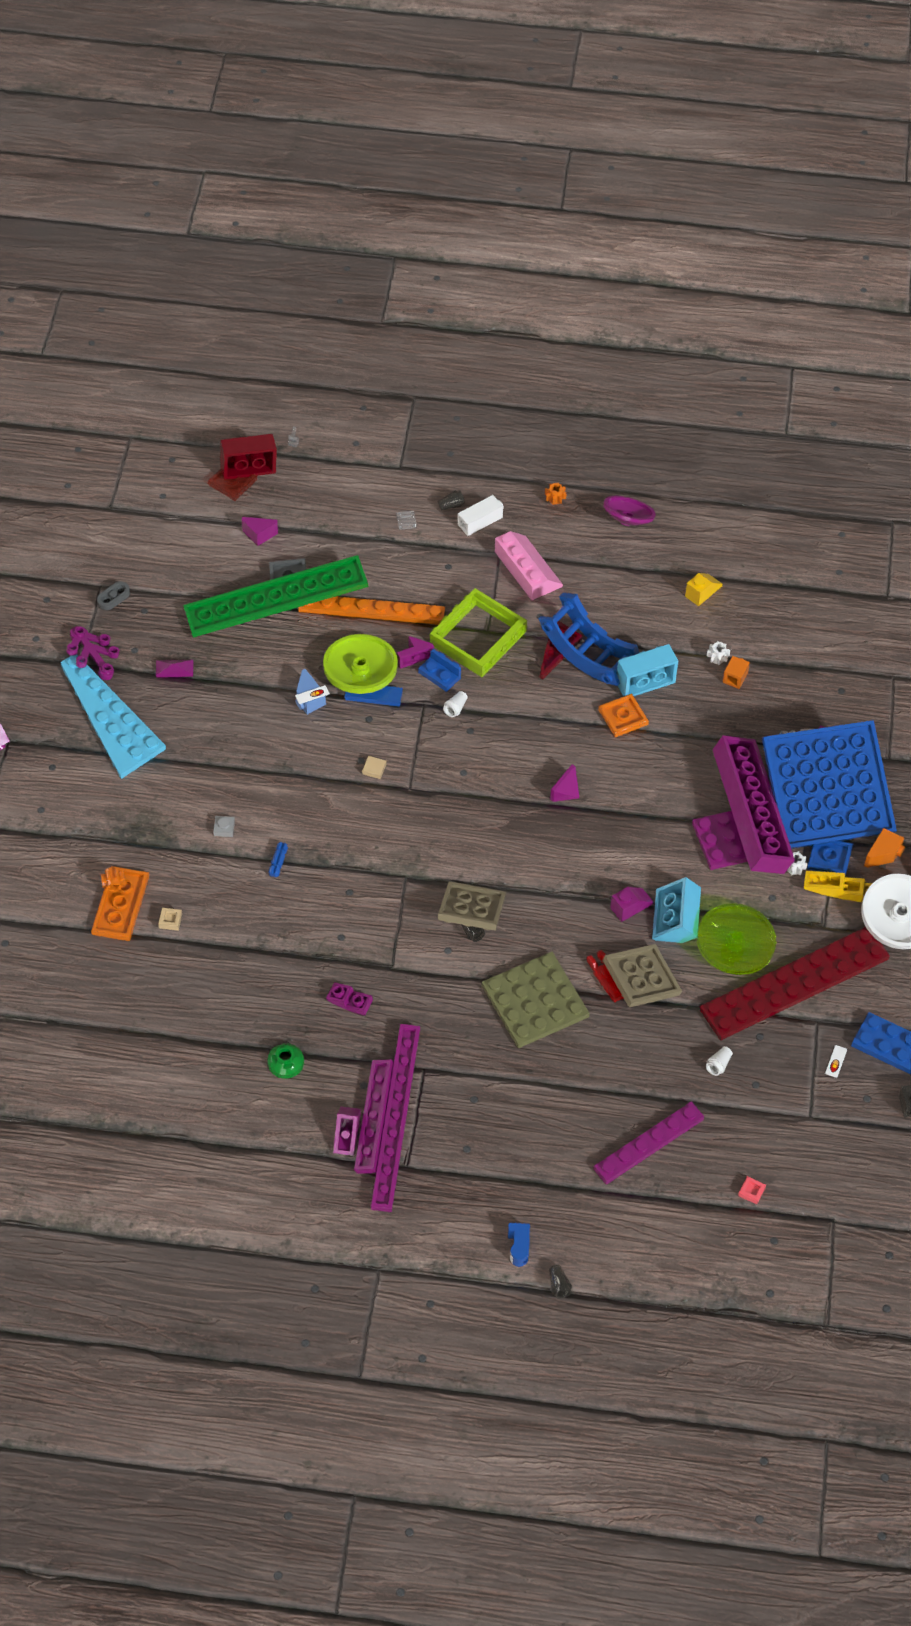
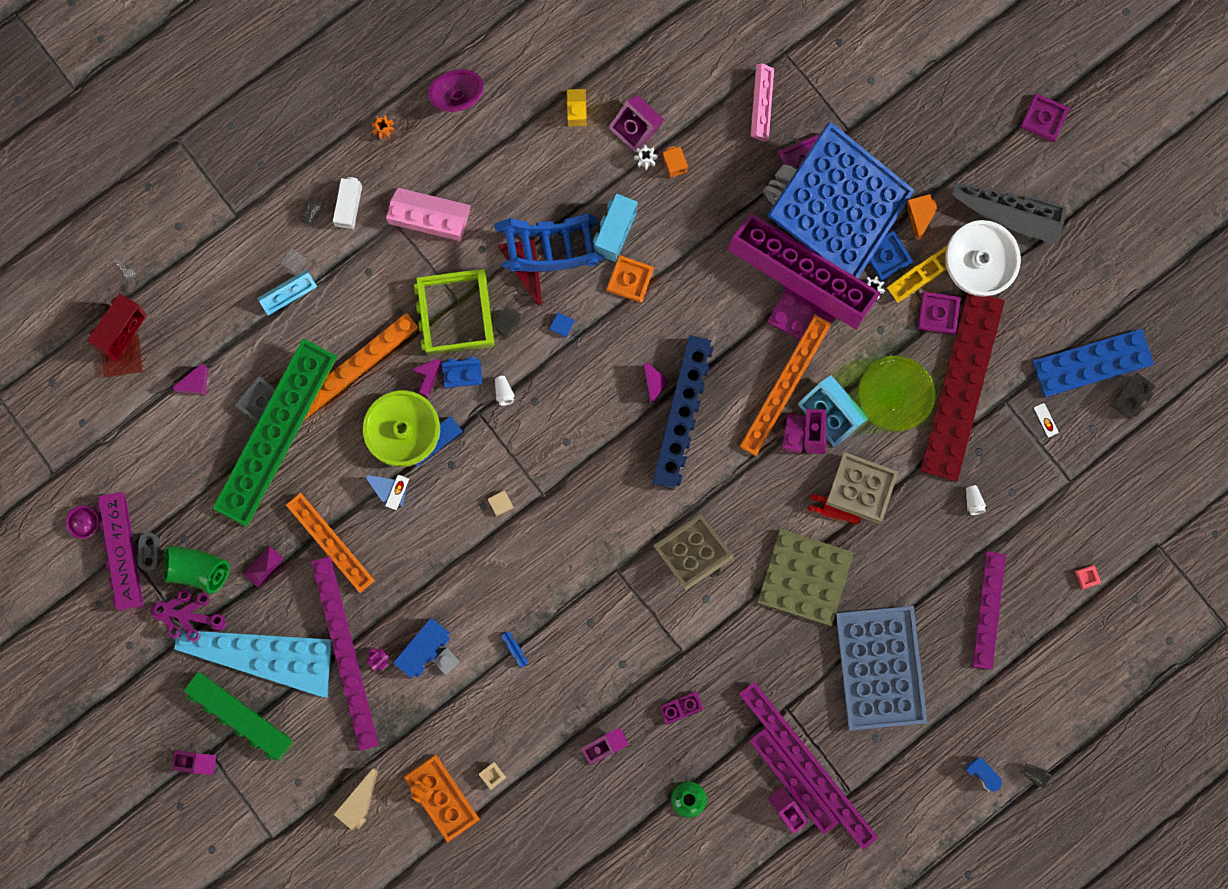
camera: 45 degrees left, 25 degrees up
(52, 735) = (239, 716): none -> green brick
(64, 852) = (357, 804): none -> tan slope
(94, 545) = (82, 522): none -> magenta hat
(96, 579) = (120, 551): none -> magenta brick
(130, 625) = (195, 568): none -> green brick
(163, 760) = (345, 653): none -> magenta plate
(181, 781) = (377, 659): none -> magenta gear
(217, 801) = (422, 649): none -> blue brick
(233, 691) = (330, 543): none -> orange plate
(268, 970) = (604, 746): none -> magenta slope
(380, 530) = (287, 292): none -> medium azure plate
(506, 666) = (507, 322): none -> clear smoke brick
(523, 1104) = (881, 668): none -> sand blue plate
(543, 701) = (562, 325): none -> blue tile
(555, 819) = (694, 346): none -> dark blue brick
(647, 911) = (816, 431): none -> magenta slope
(659, 867) = (785, 385): none -> orange tile
(735, 627) = (636, 123): none -> magenta slope
(829, 922) = (939, 313): none -> magenta tile
(841, 688) = (762, 102): none -> bright pink plate

